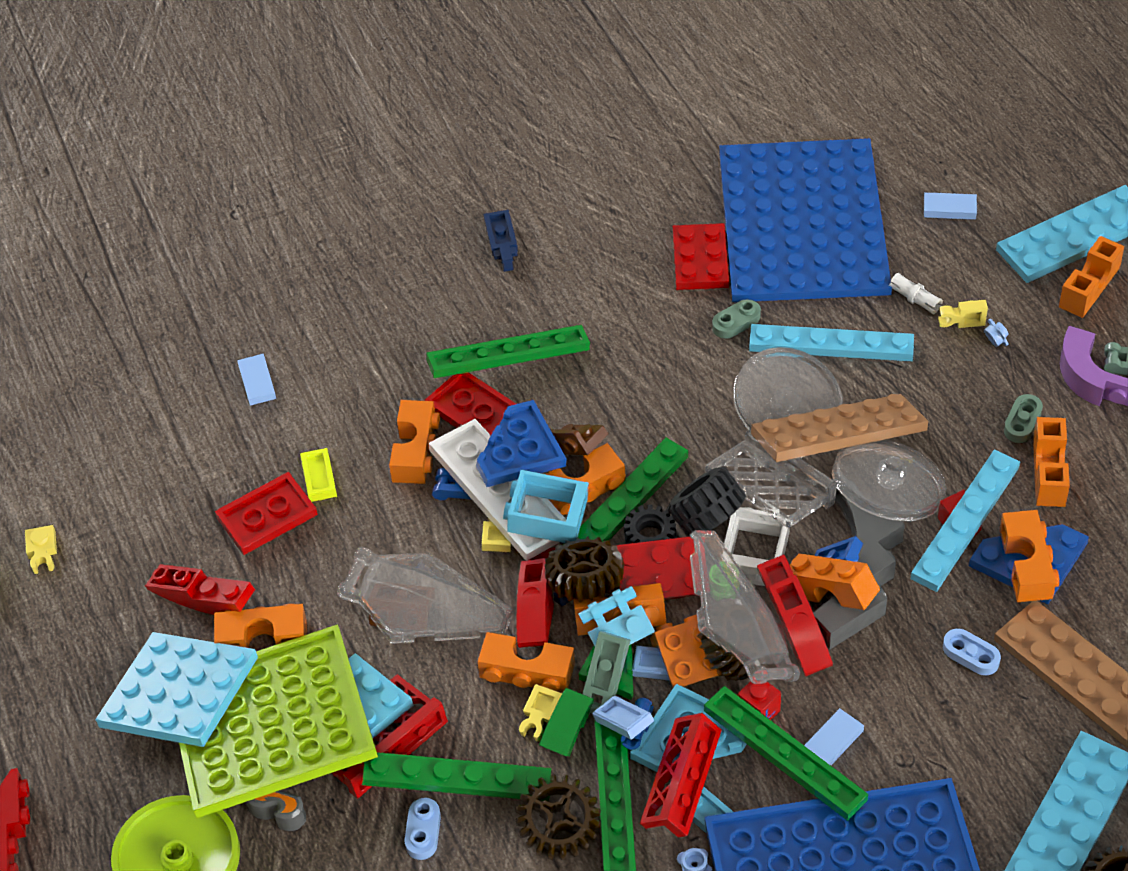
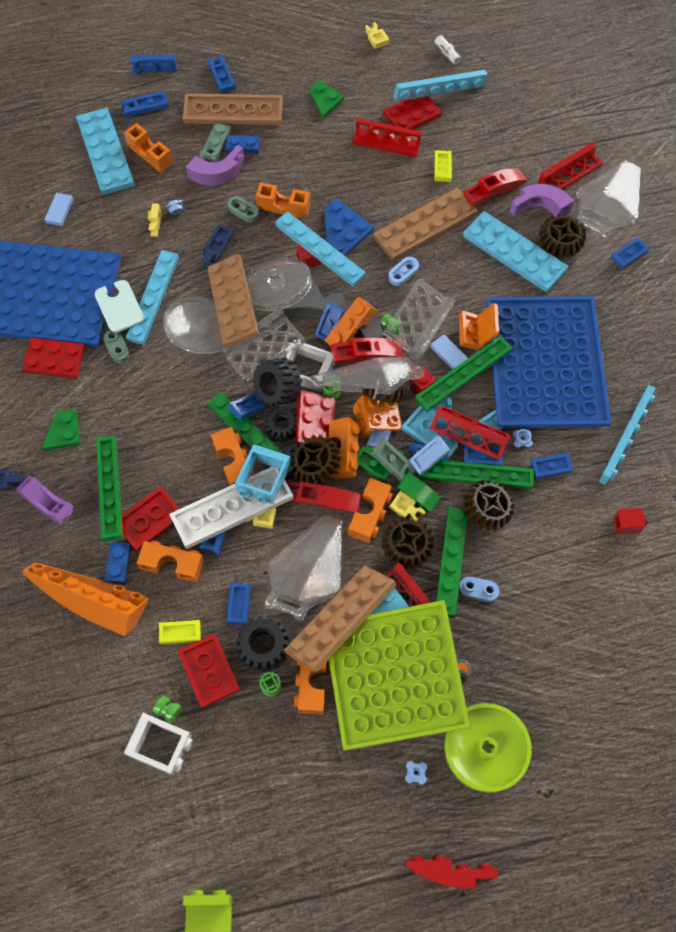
camera: 85 degrees left, 15 degrees up
(40, 545) = (195, 847): light yellow plate -> none
(142, 783) = (412, 767): none -> light blue plate
(168, 455) = (139, 735): none -> white window
(177, 689) = (356, 740): medium azure plate -> none
(197, 591) = (270, 721): red slope -> none
(211, 475) = (166, 709): none -> bright green wheel
(254, 574) = (272, 687): none -> bright green wheel
(256, 379) = (77, 670): light blue tile -> none
(308, 580) = (262, 627): none -> black tyre
(347, 639) = (340, 618): none -> medium nougat plate
(353, 368) = (90, 598): none -> orange wedge
(365, 532) = (238, 603): none -> blue tile
(405, 388) = (118, 563): none -> blue plate
(479, 729) = (395, 551): none -> dark brown gear
(480, 292) = (44, 500): none -> medium lavender arch
(519, 444) = (204, 486): blue plate -> none
(579, 438) = (199, 454): reddish brown bracket -> none
(590, 292) = (63, 431): none -> green wing
(631, 624) = (360, 446): medium azure plate -> none
(640, 793) = (474, 456): none -> blue plate
(662, 477) = (247, 406): none -> blue plate
(793, 306) = (119, 311): none -> light aqua piece
(857, 648) = (385, 321): none -> bright green wheel
(870, 703) = (428, 330): none -> clear fence
(882, 762) = (479, 329): none -> orange bracket
(915, 293) = (128, 242): white pin -> none
(943, 397) = (216, 245): none -> dark blue hinge
(1026, 534) = (363, 222): orange arch -> none

